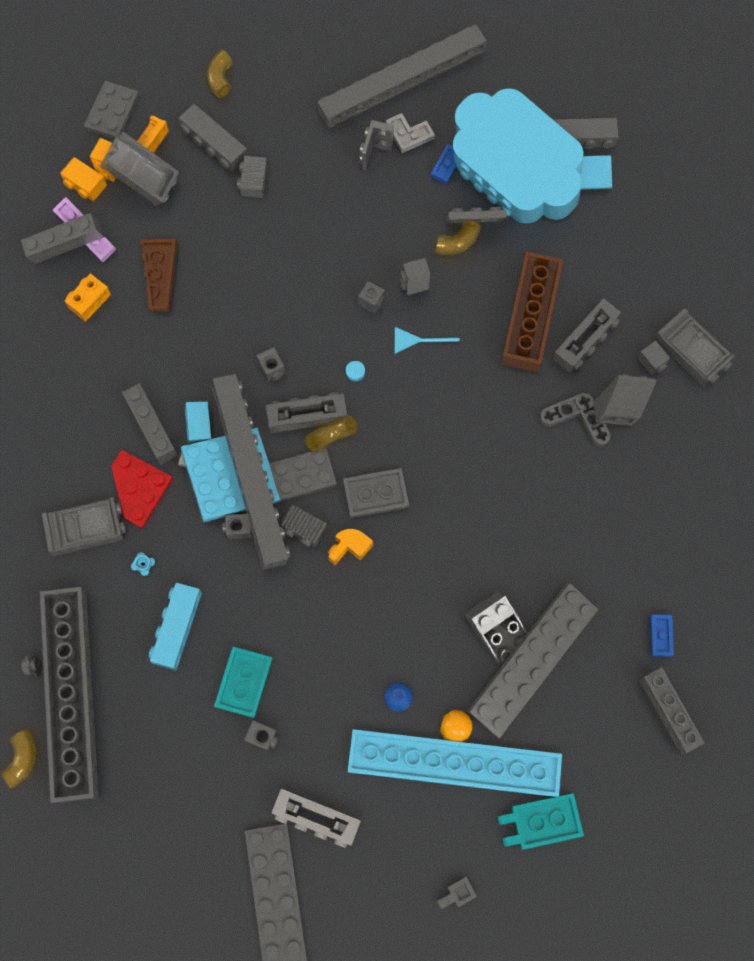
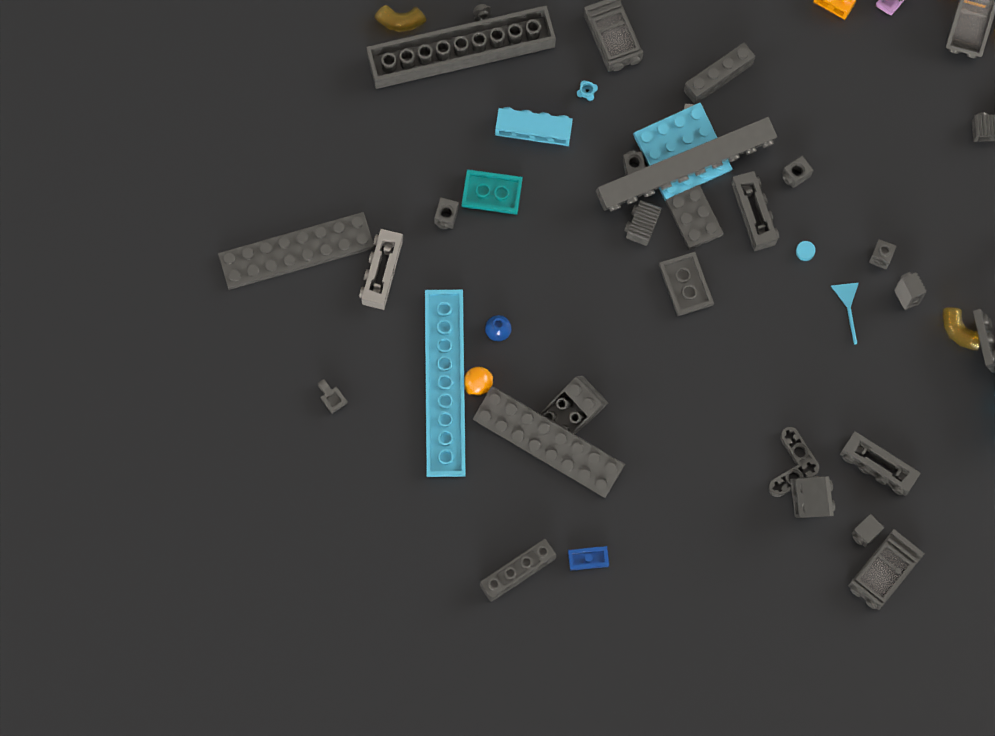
camera: 80 degrees right, 0 degrees up
(138, 487) = (658, 75): red plate -> none
(159, 265) = (886, 56): reddish brown wing -> none
(197, 422) = (728, 114): medium azure hinge -> none
(331, 432) = (737, 234): clear yellow cylinder -> none
(352, 541) = (635, 266): light orange brick -> none
(532, 312) = (895, 406): reddish brown brick -> none
(543, 822) = (403, 465): teal tile -> none

